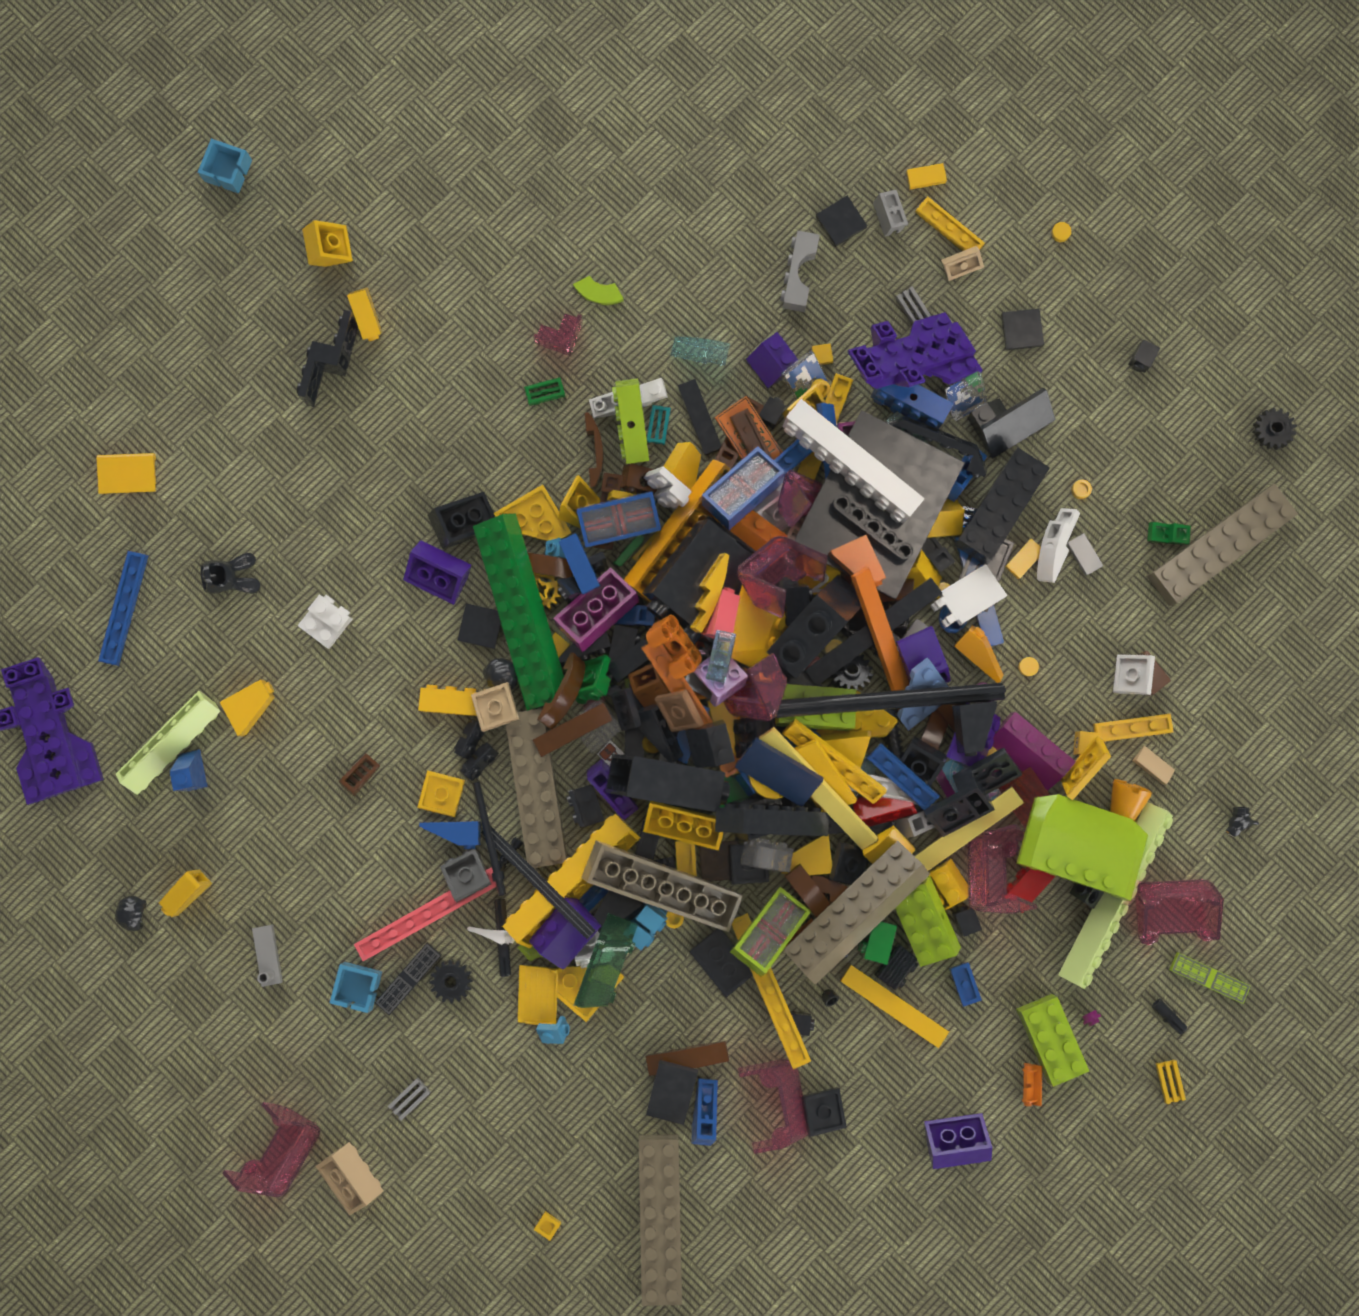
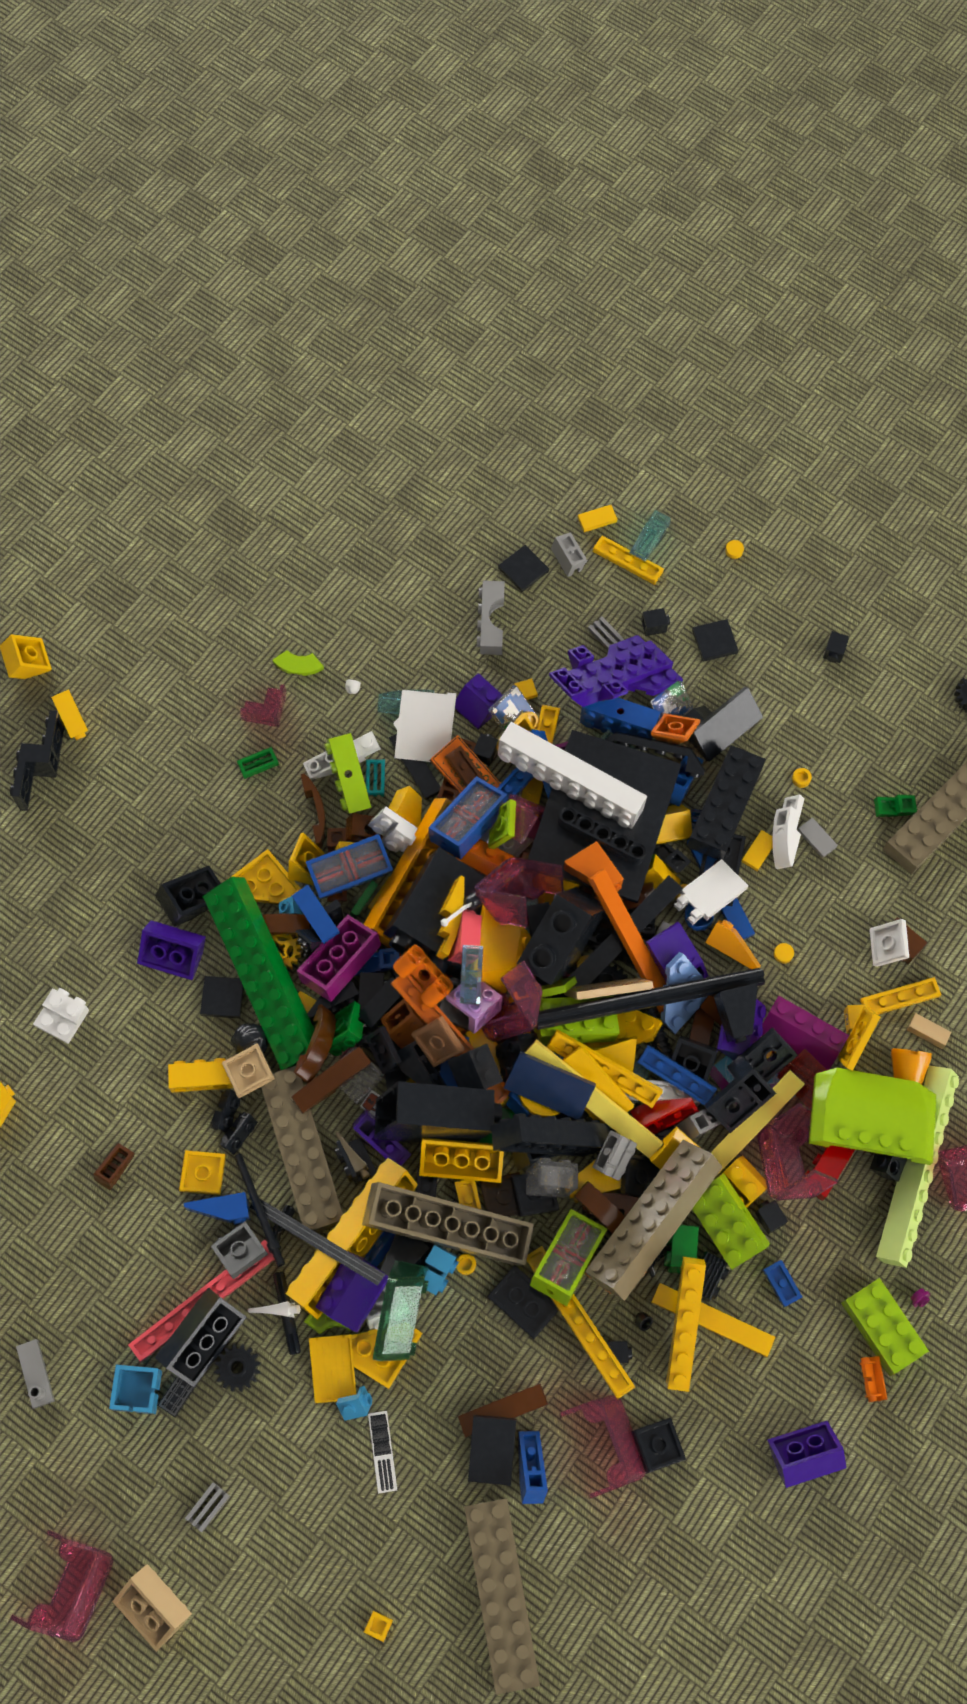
camera: 10 degrees left, 15 degrees down
(420, 950) = (200, 1337): none -> black slope
(572, 1074) = (382, 1452): none -> sticker
(586, 810) = (358, 1164): none -> dark tan piece
(649, 325) = (352, 686): none -> white hinge
(714, 378) = (423, 724): none -> white sticker
(731, 582) = (471, 902): none -> hinge
(777, 504) = (504, 826): none -> lime tile
(805, 677) = (559, 987): none -> lime tile
(829, 845) = (615, 1155): none -> light grey brick
(851, 683) = (609, 988): none -> tan tile
(868, 1011) = (685, 1324): none -> yellow brick
(962, 263) = (646, 589): tan slope -> none
(965, 301) = (655, 621): none -> black brick
(965, 423) = (674, 728): none -> orange slope
(977, 205) = (650, 535): none -> clear light blue slope

